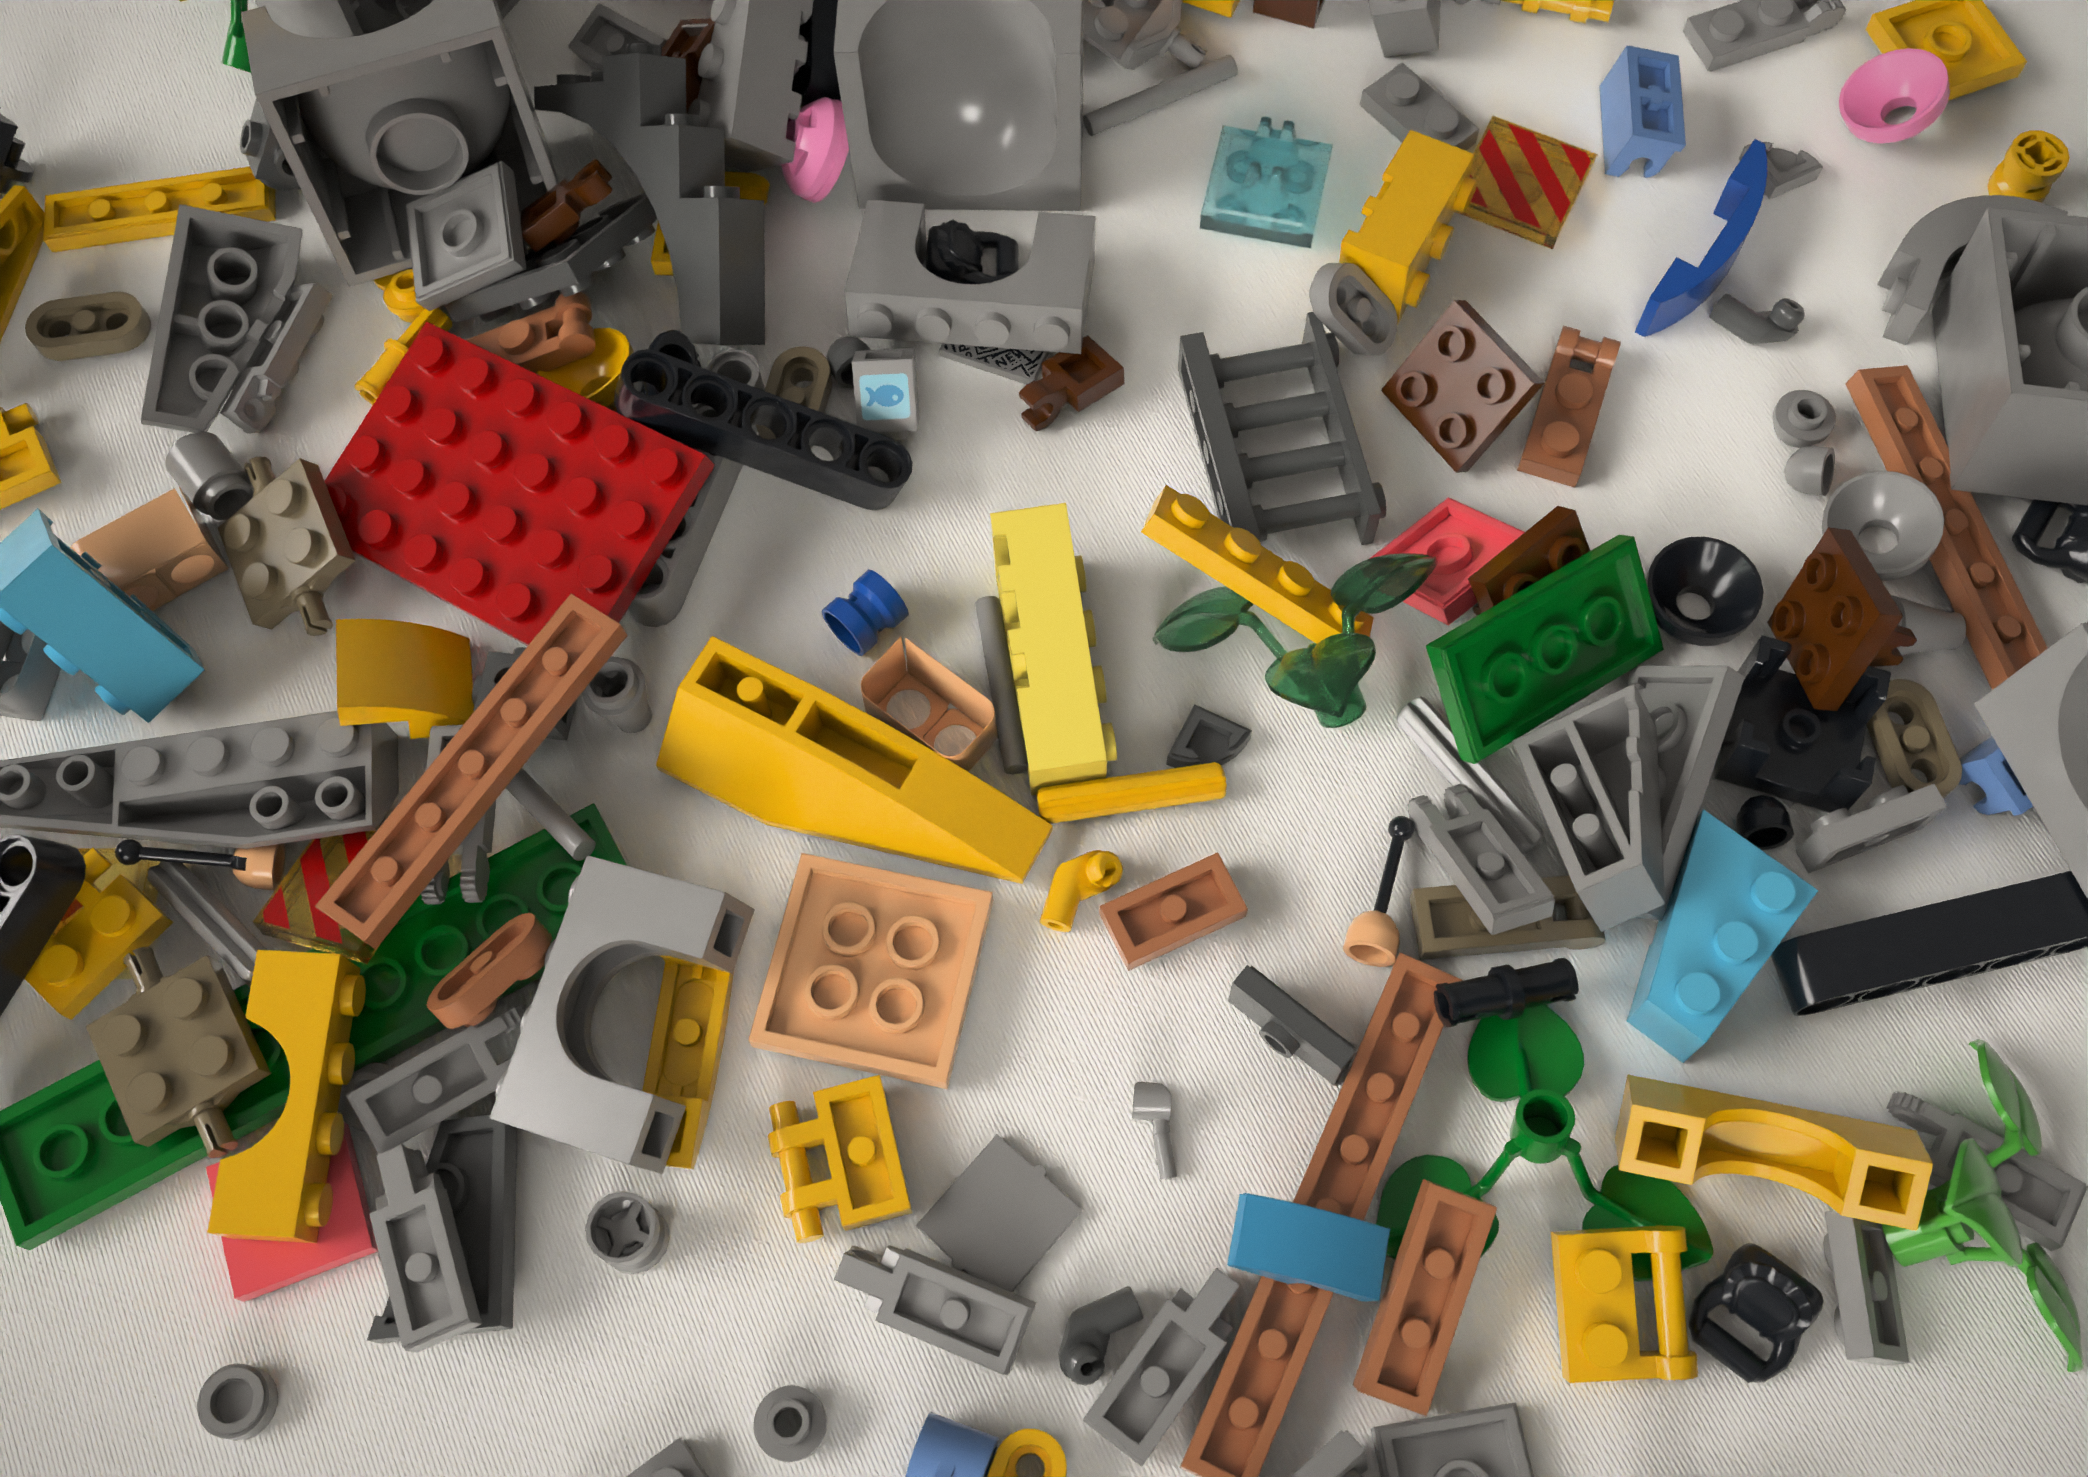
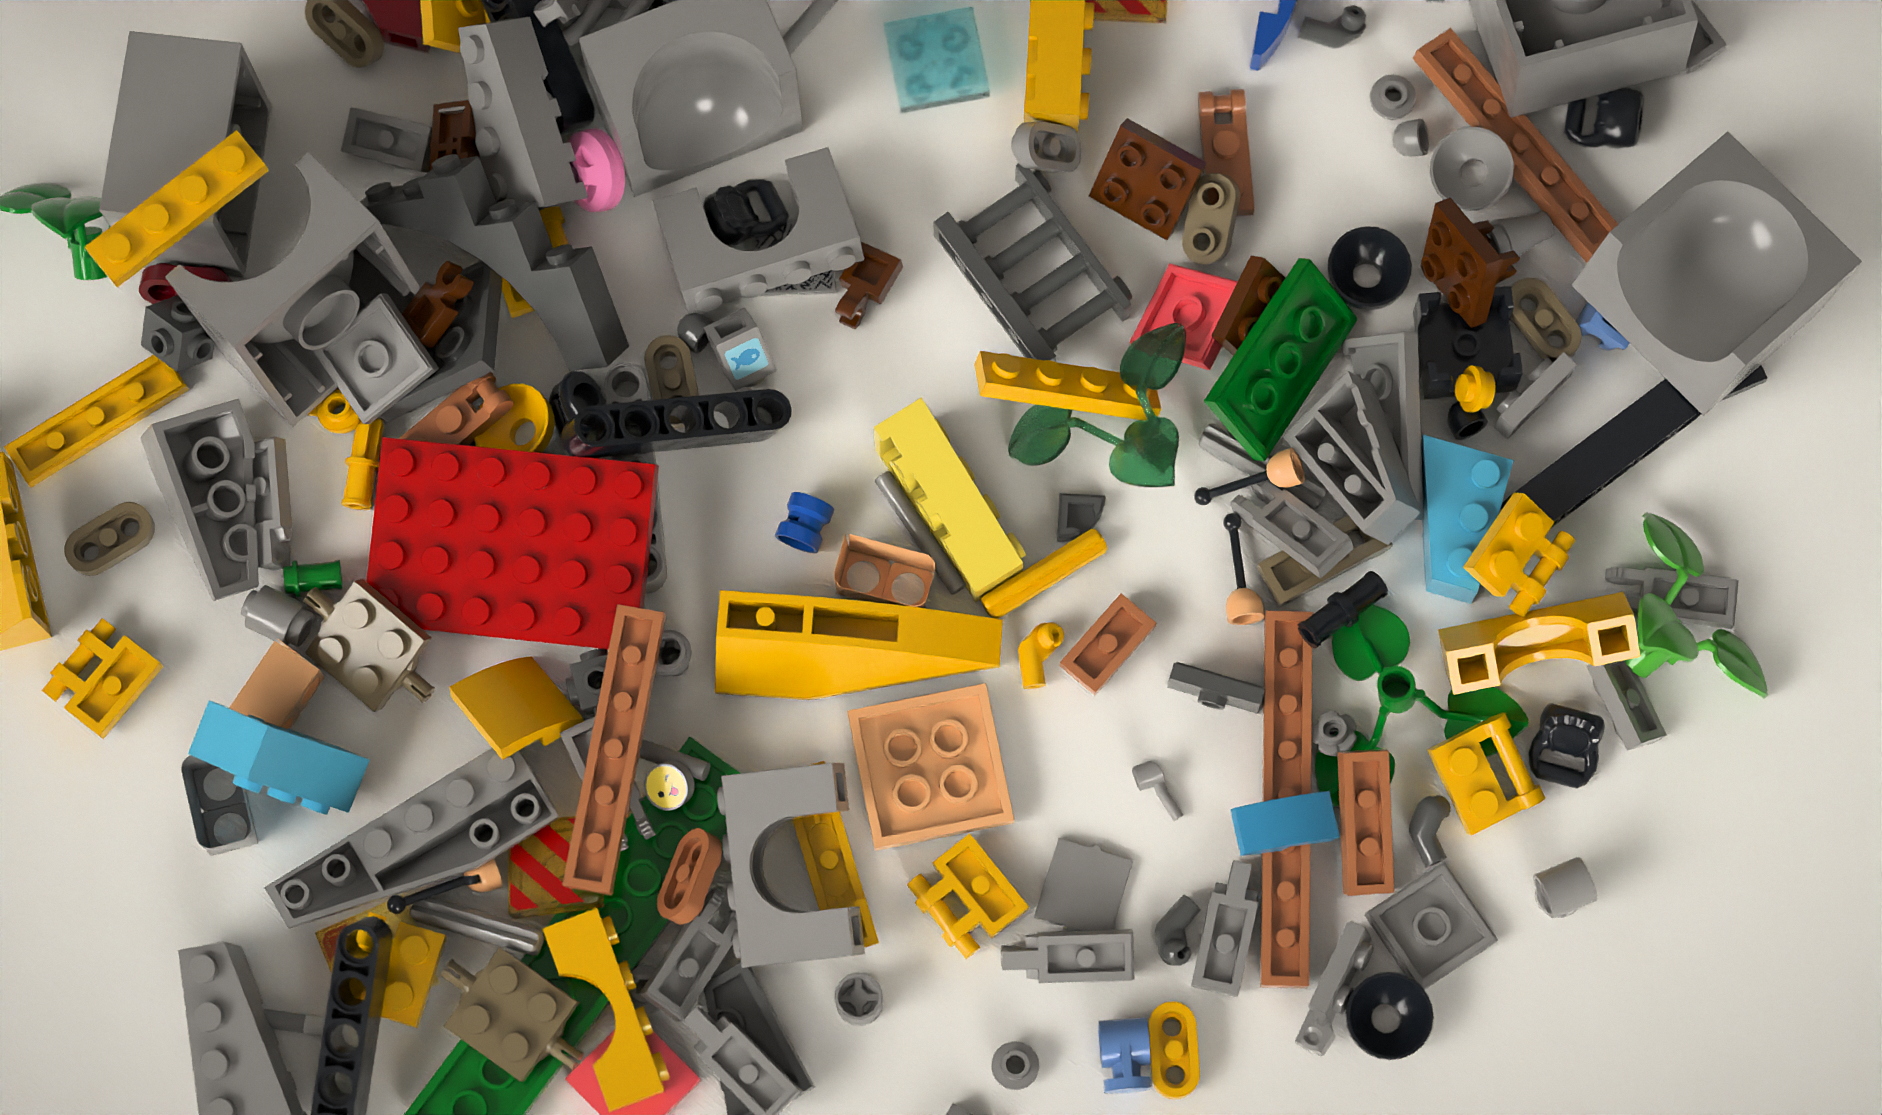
camera: 25 degrees left, 10 degrees up
(281, 450) = (307, 576): none -> green pin
(529, 846) = (669, 785): none -> tile
(1437, 1169) = (1332, 744): none -> light grey plate
(1494, 782) = (1282, 470): none -> hinge
(1506, 1340) = (1424, 826): none -> dark grey arm
(1525, 461) = (1214, 220): none -> dark tan plate
(1775, 998) = (1509, 545): none -> yellow plate
(1795, 782) = (1475, 389): none -> yellow plate

